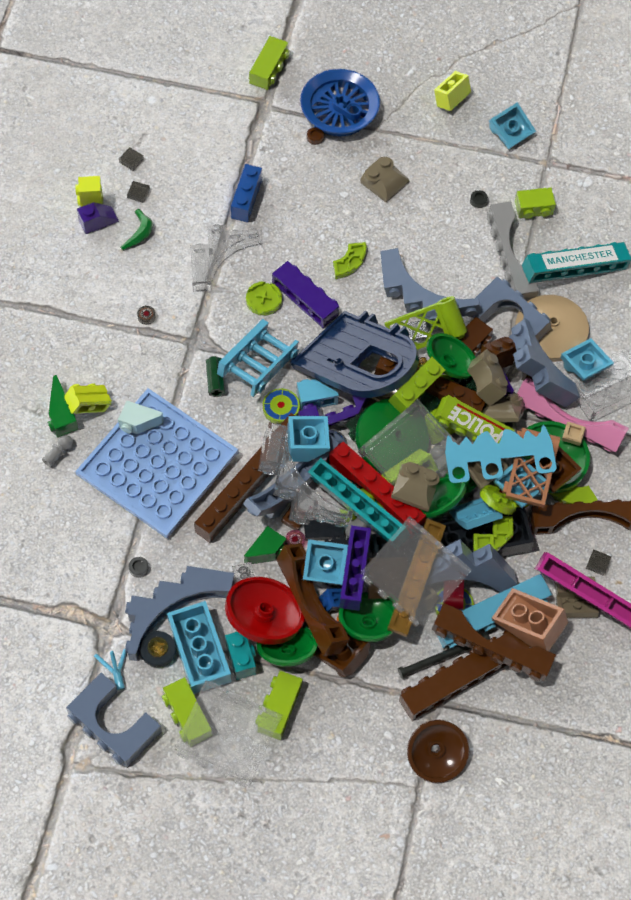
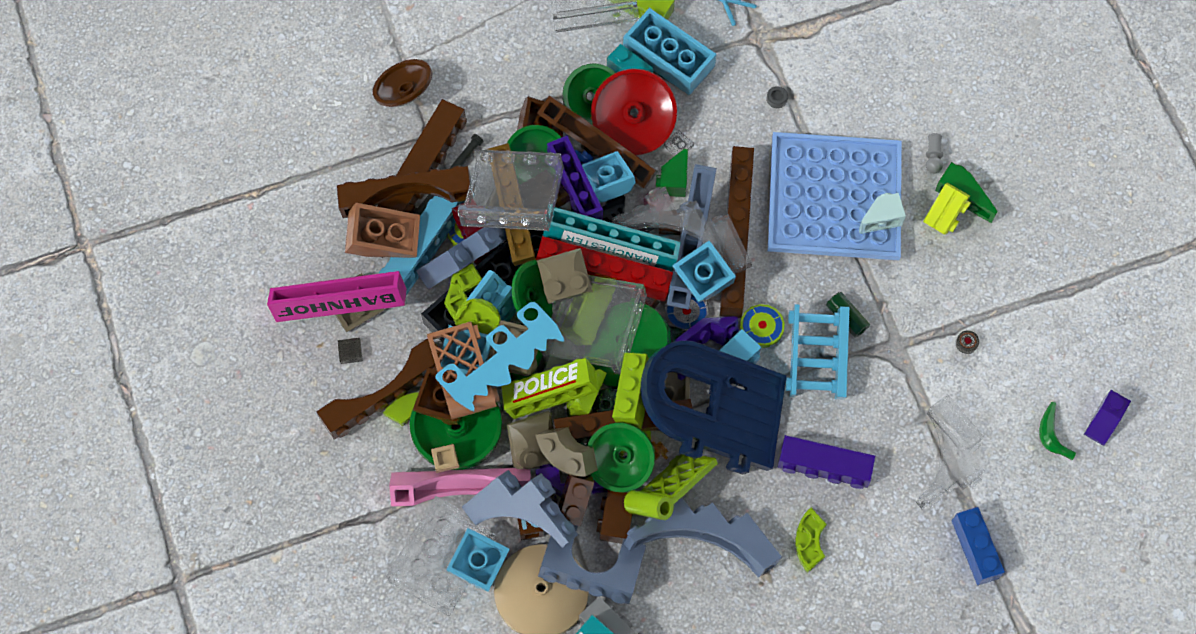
camera: 150 degrees right, 5 degrees up
(89, 190) = (1133, 430): neon yellow brick -> none
(131, 159) = (1134, 517): clear smoke tile -> none
(138, 191) = (1092, 481): clear smoke tile -> none
(155, 642) = (707, 28): black wheel -> none
(168, 596) = (715, 104): sand blue arch -> none
(263, 298) = (866, 434): lime tile -> none
(283, 698) = (565, 50): lime brick -> none

